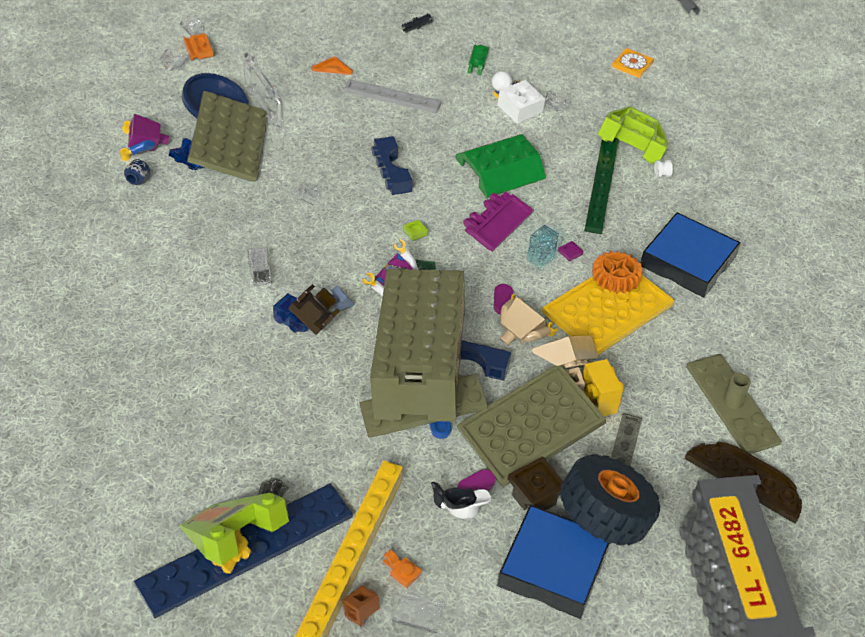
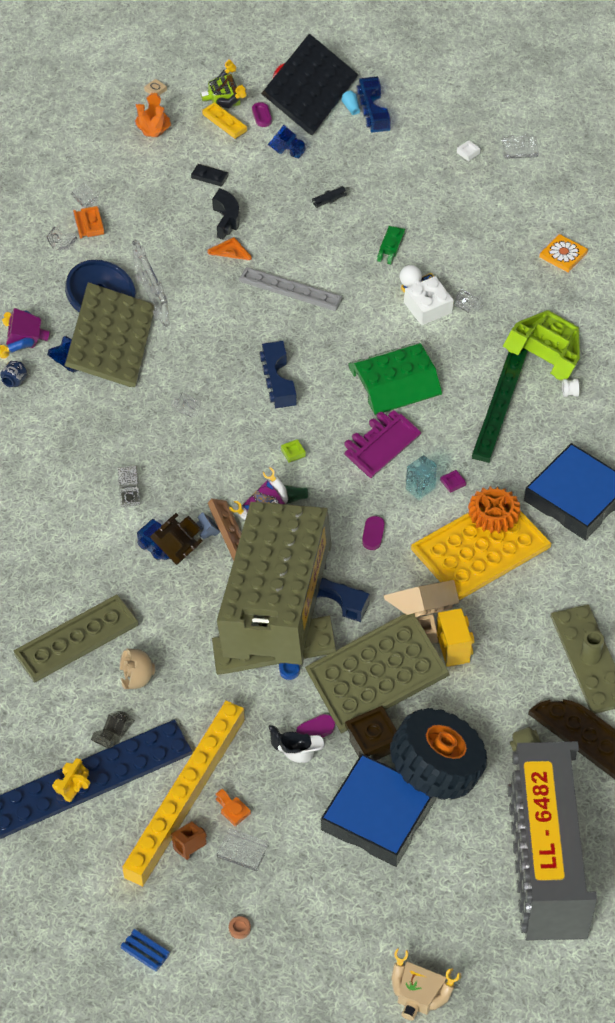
camera: 10 degrees right, 5 degrees up
(215, 526) = (58, 756): lime wedge -> none
(219, 410) = (75, 638): none -> olive plate
(287, 432) = (138, 667): none -> tan cylinder
(305, 8) = (209, 175): none -> black plate
(327, 33) = (228, 206): none -> black arch
(361, 299) = (226, 524): none -> medium nougat plate
(523, 322) = (387, 561): tan torso -> none
(626, 438) = (472, 692): clear smoke tile -> none
(686, 483) = (524, 735): none -> olive head

